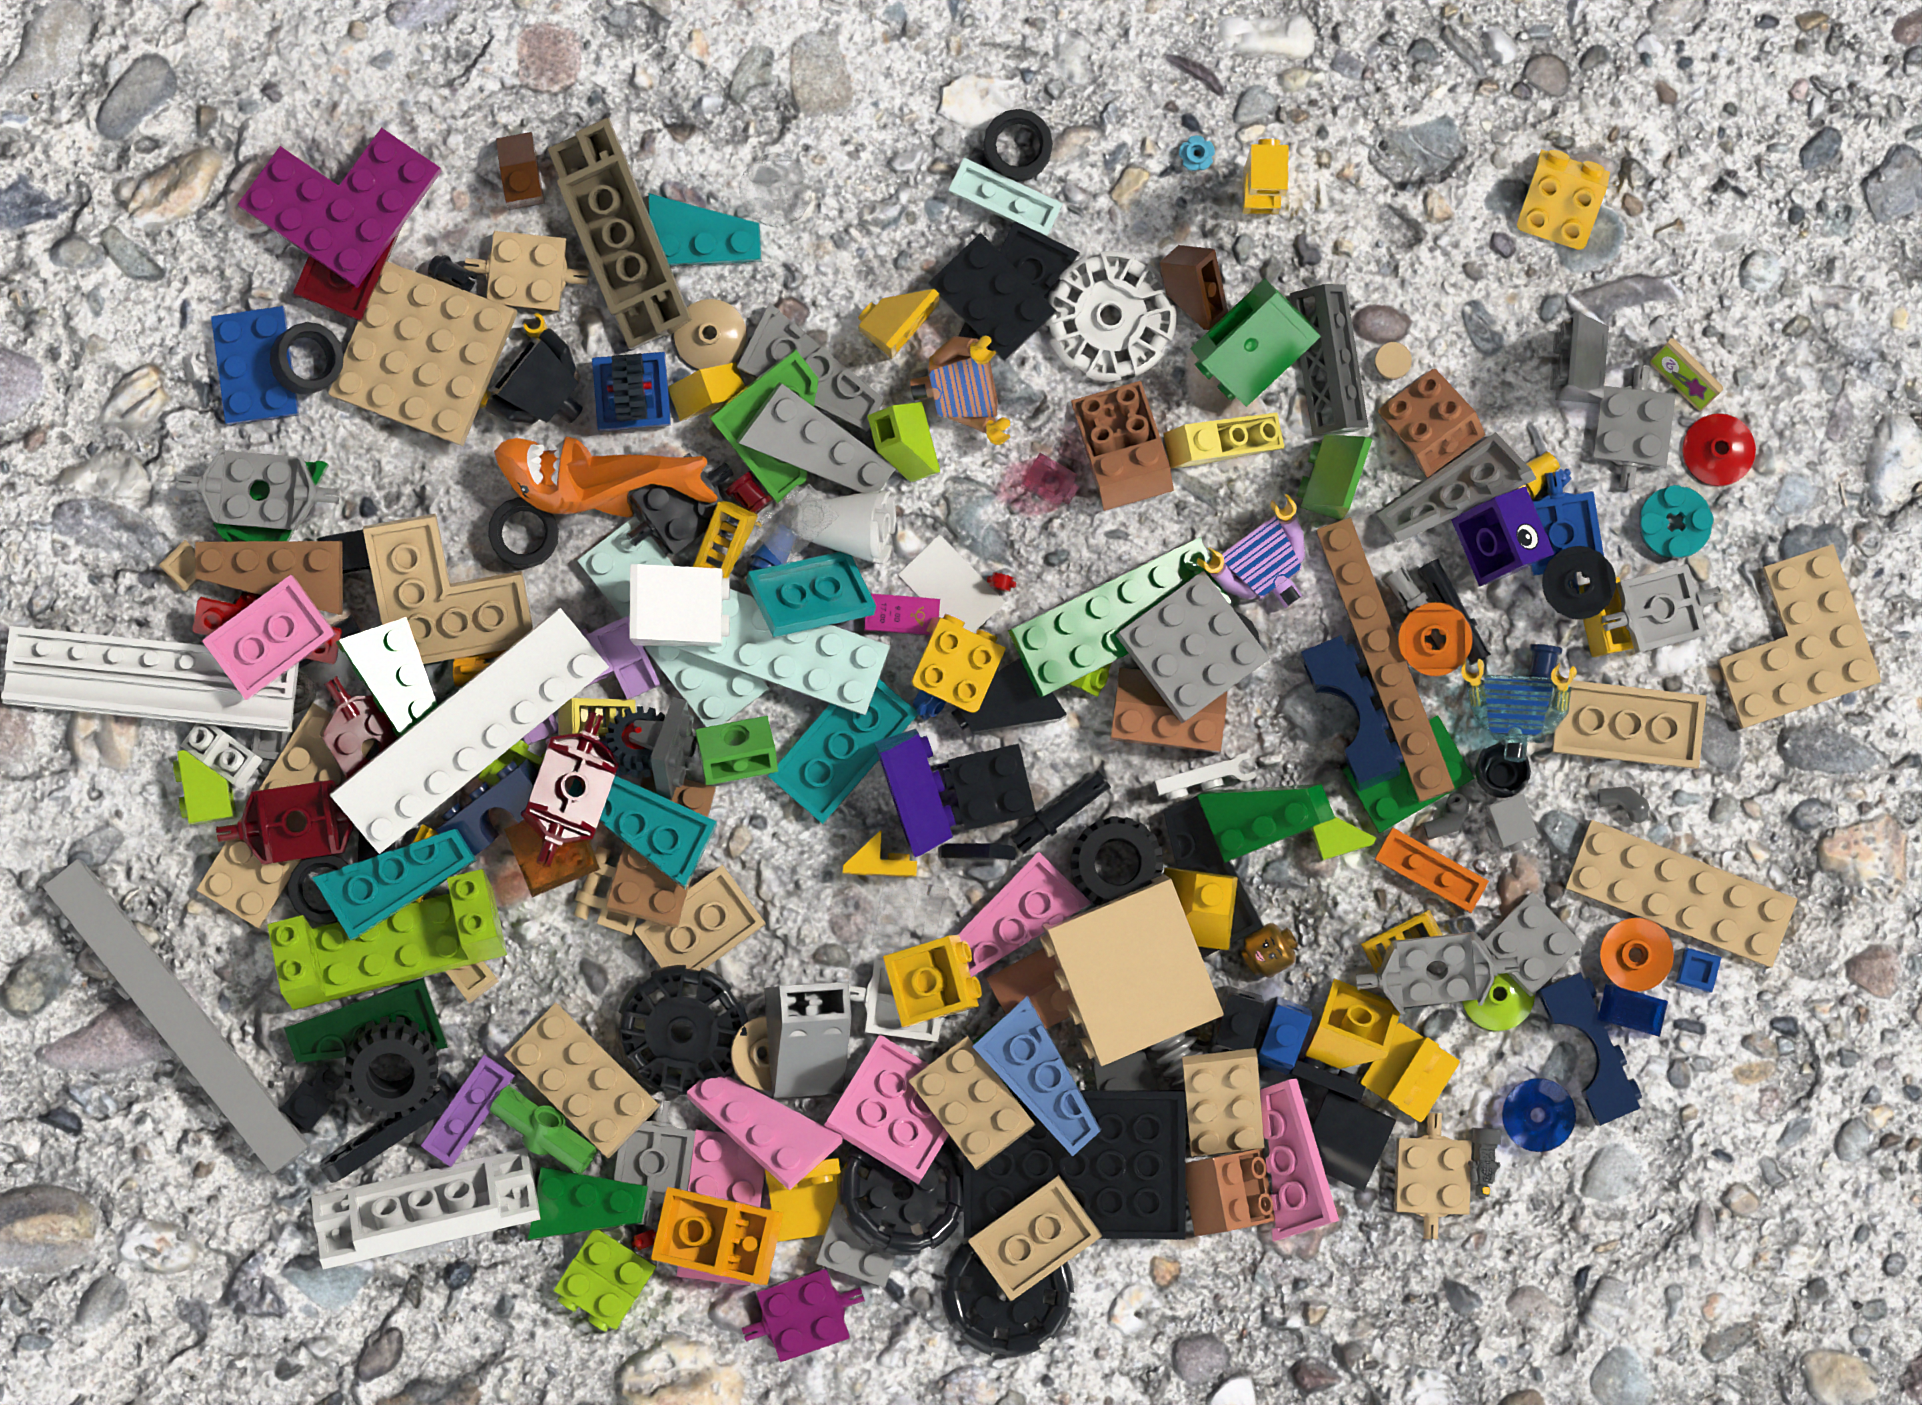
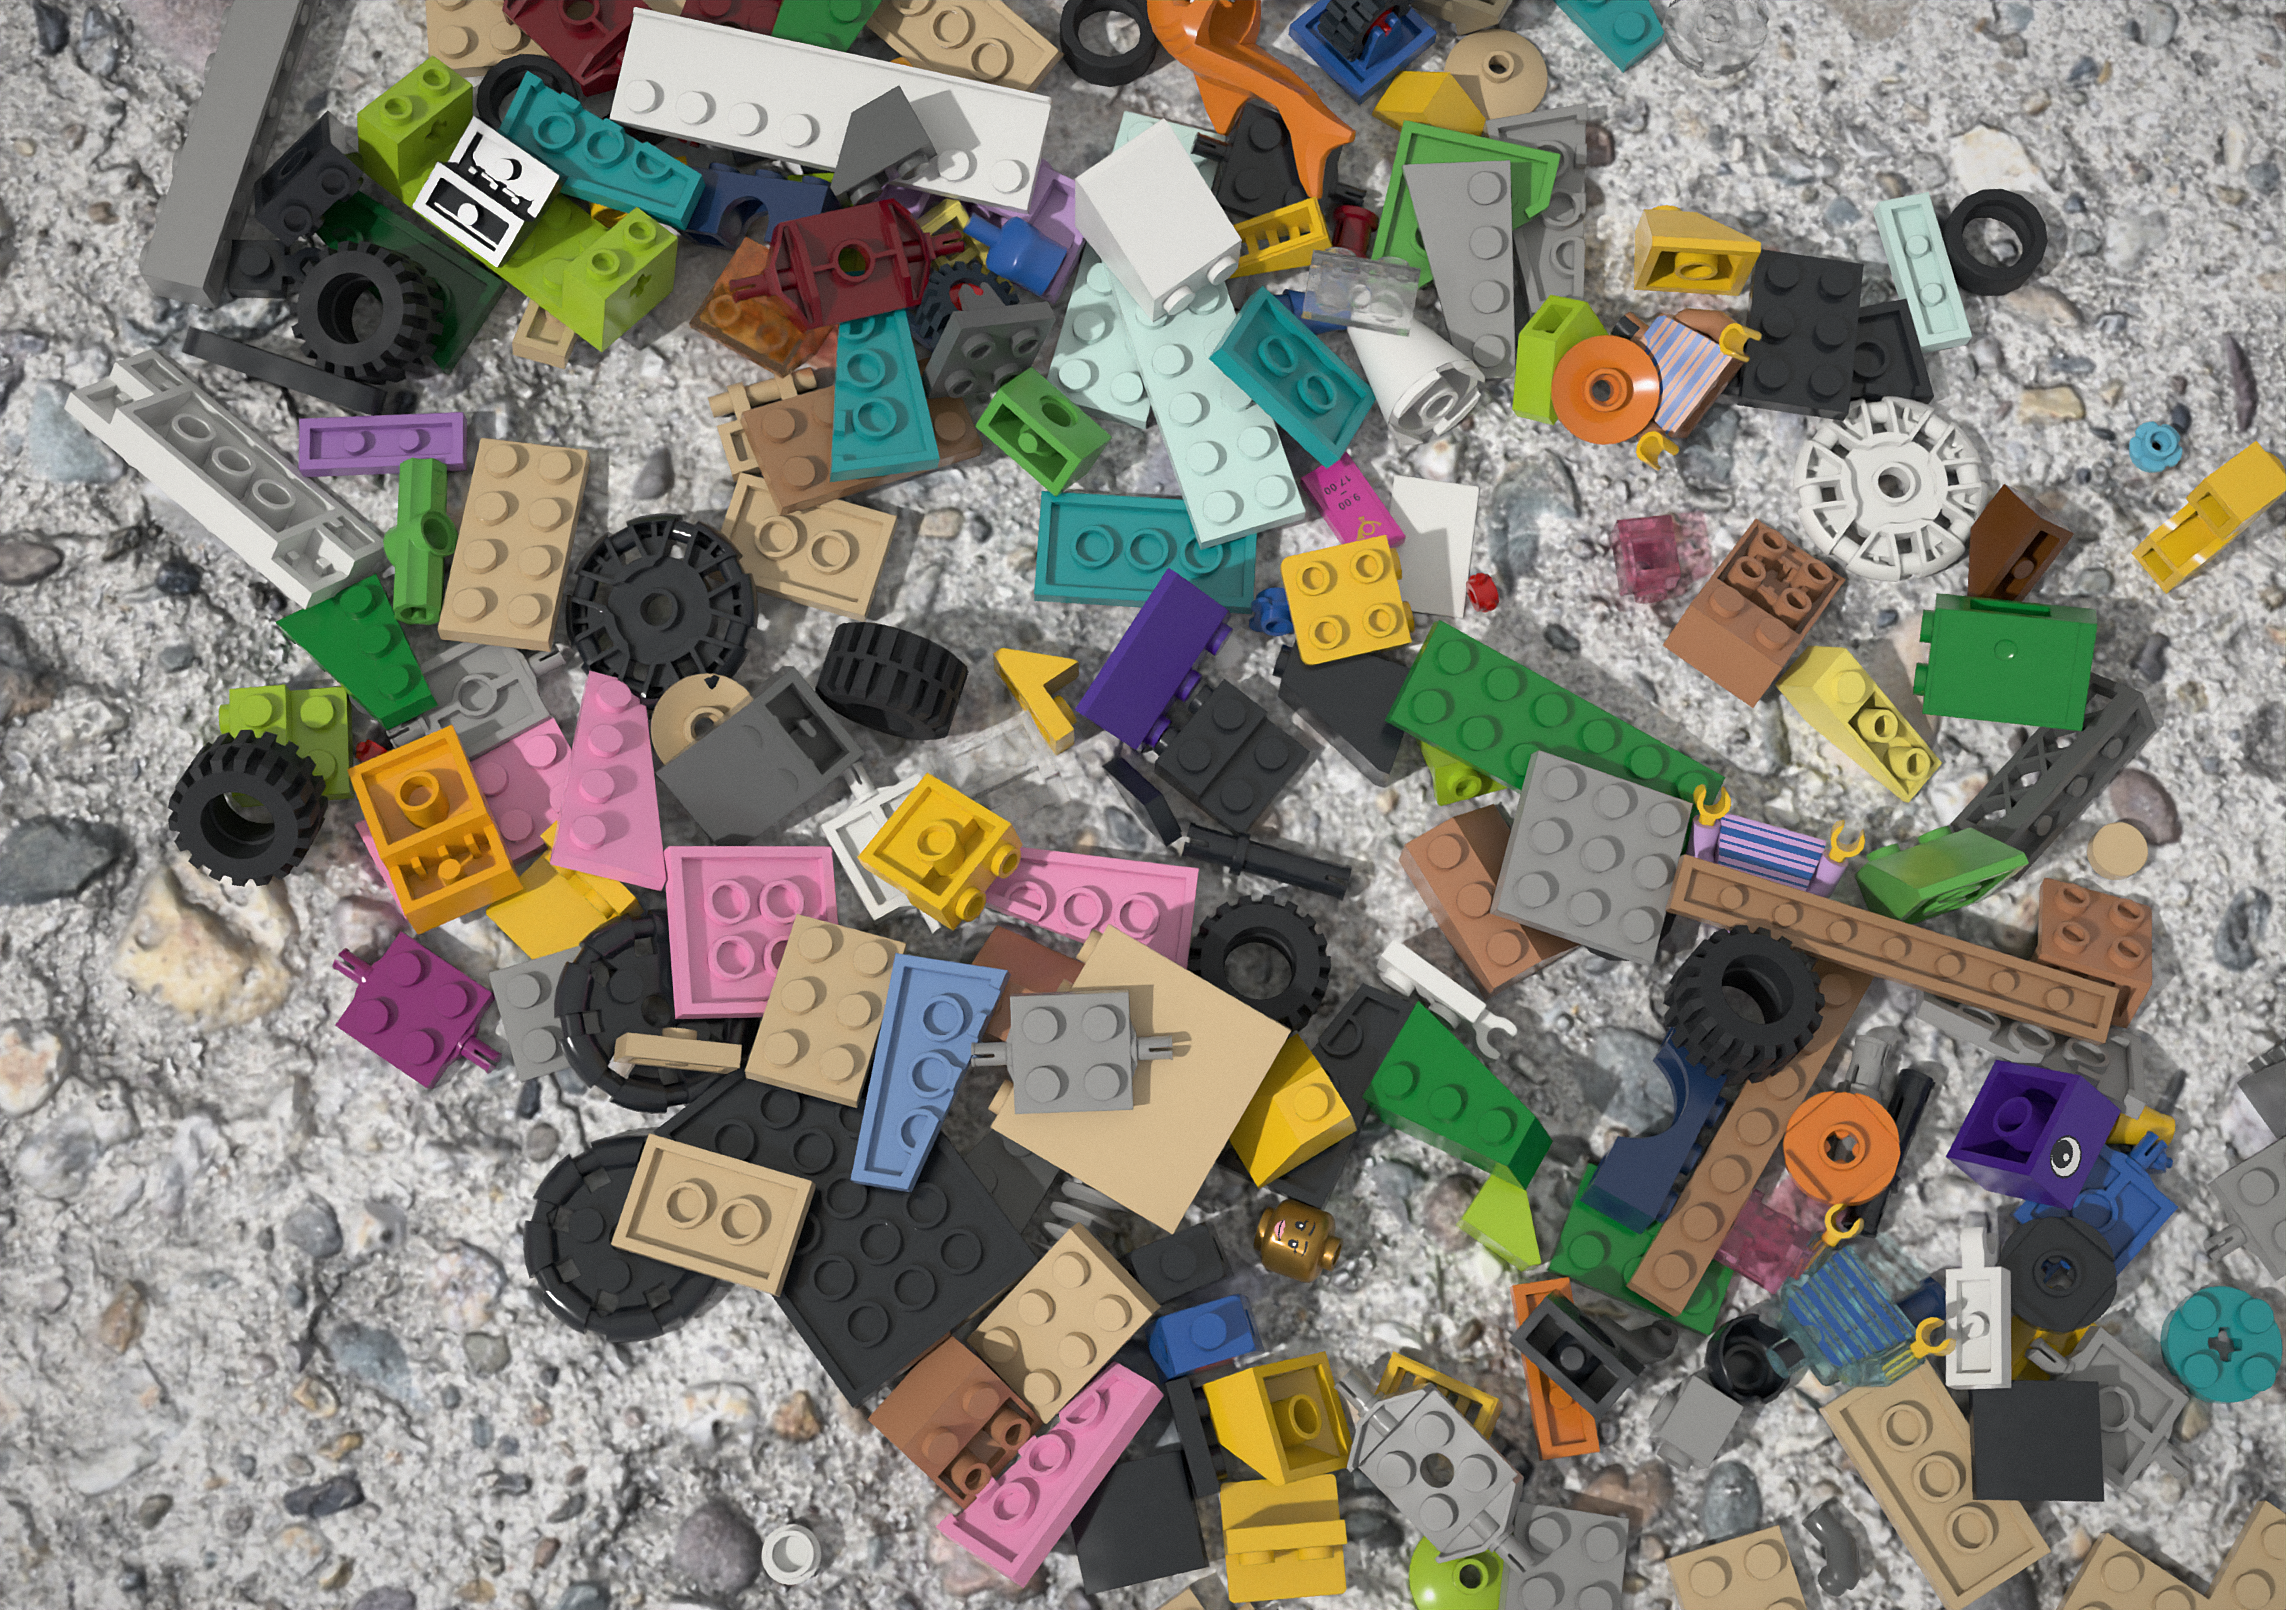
camera: 50 degrees right, 10 degrees down
(285, 1044) = (308, 181): none -> black plate
(375, 951) = (489, 192): none -> slope
(520, 721) = (878, 147): none -> dark grey slope
(619, 1309) = (230, 842): none -> black tyre
(626, 687) = (1018, 252): none -> blue piece
(819, 938) = (891, 680): none -> black tyre
(936, 1194) = (678, 1050): none -> tan plate
(962, 435) = (1632, 389): none -> orange dish
(1097, 997) = (1071, 1051): none -> light grey plate
(1231, 1323) = (791, 1554): none -> white plate
(1335, 605) = (1765, 972): none -> black tyre
(1356, 531) = (1894, 950): none -> medium nougat plate
(1435, 857) = (1576, 1354): none -> black brick
(1454, 719) = (1765, 1245): none -> clear pink brick
(1568, 639) = (1979, 1315): none -> white plate
(1649, 661) = (2037, 1442): none -> black slope

